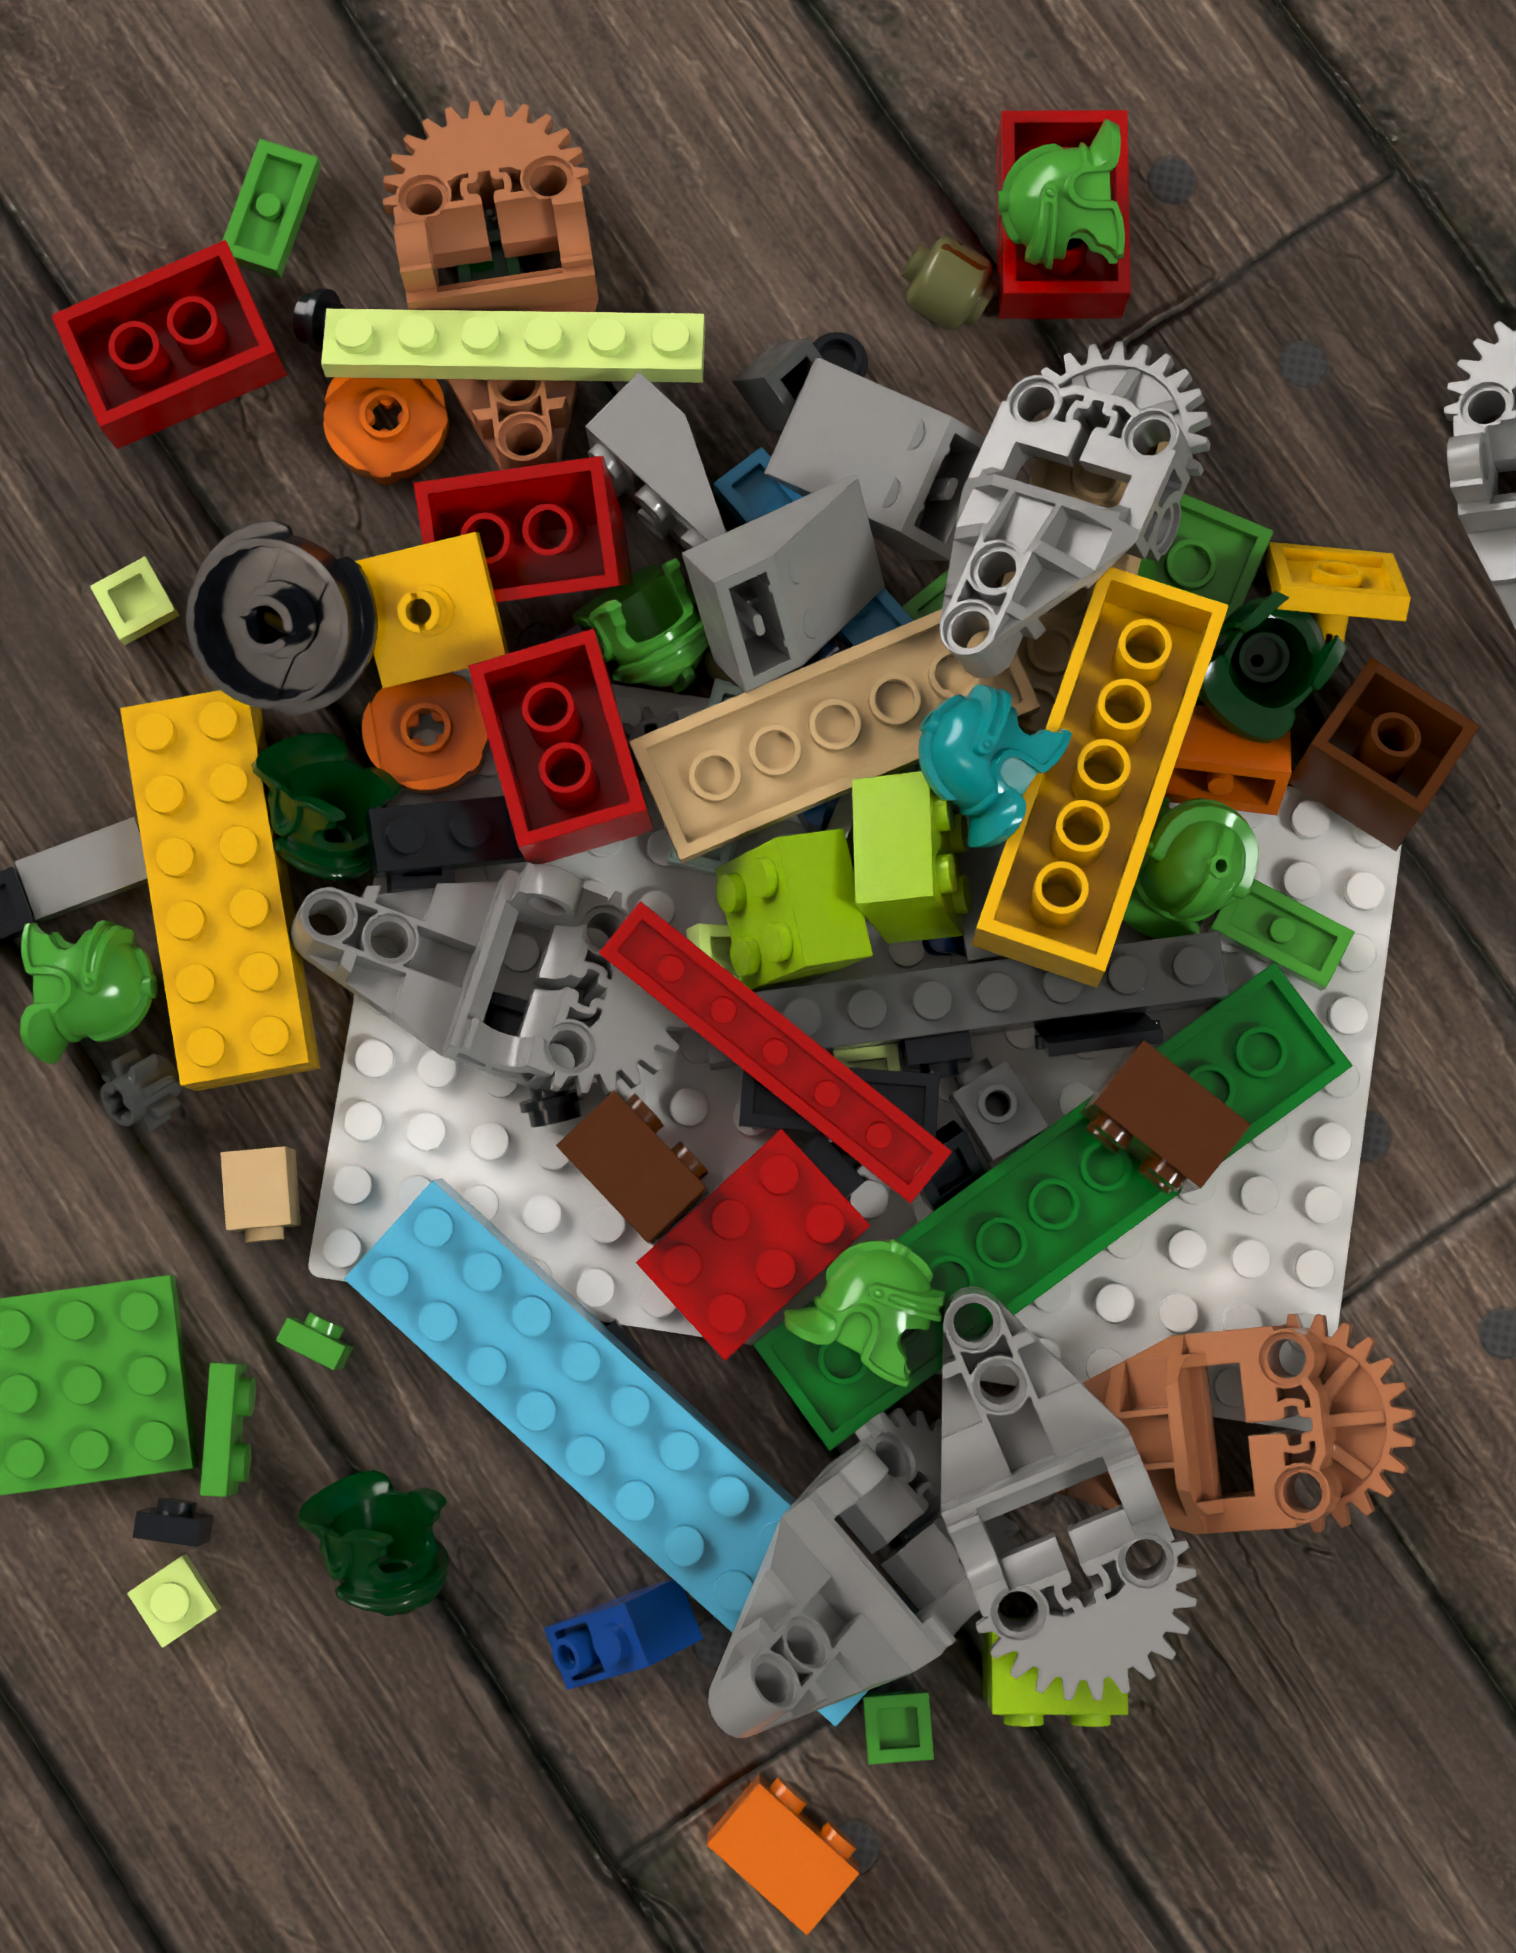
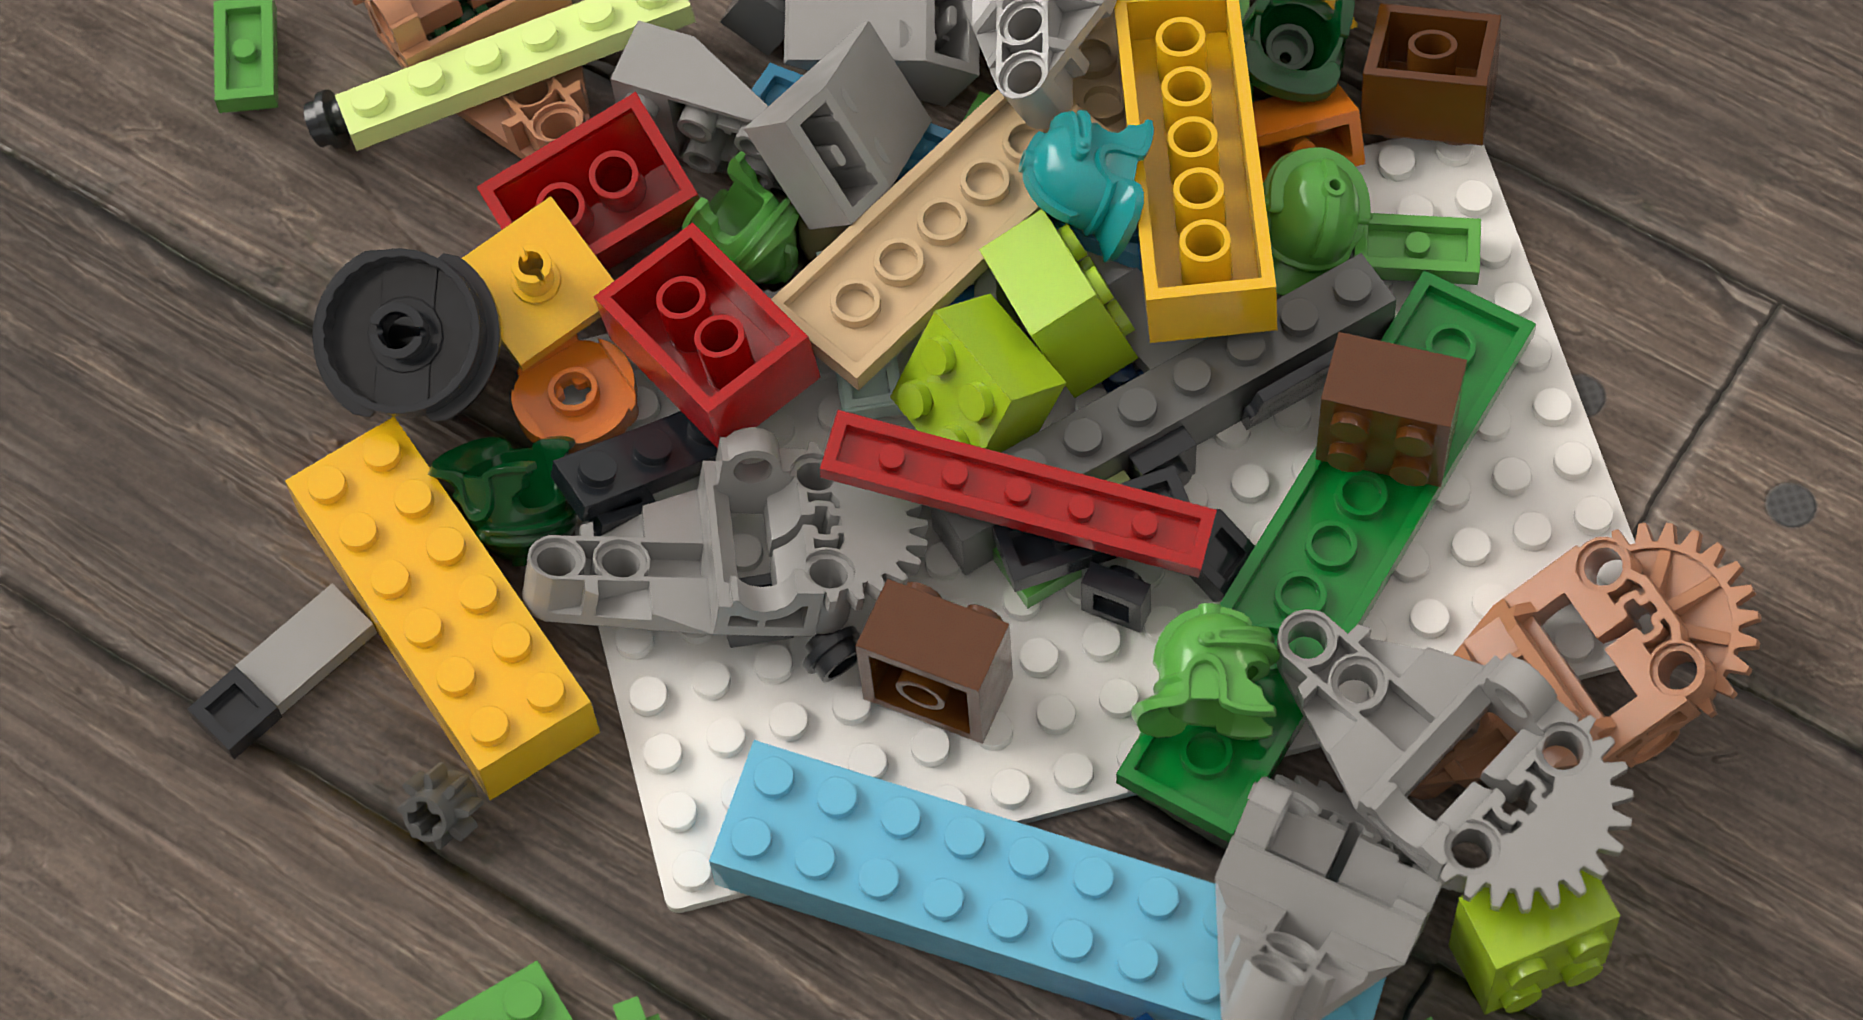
camera: 20 degrees left, 20 degrees down
(83, 988) = (353, 731): bright green helmet -> none
(134, 600) = (256, 406): yellowish green plate -> none
(169, 345) = (203, 184): red brick -> none
(260, 1192) = (593, 847): tan brick -> none
(316, 1339) = (704, 956): bright green plate -> none
(385, 453) = (430, 203): orange plate -> none
(753, 1244) = (1071, 690): red brick -> none
(996, 1108) = (1241, 484): dark grey brick -> none

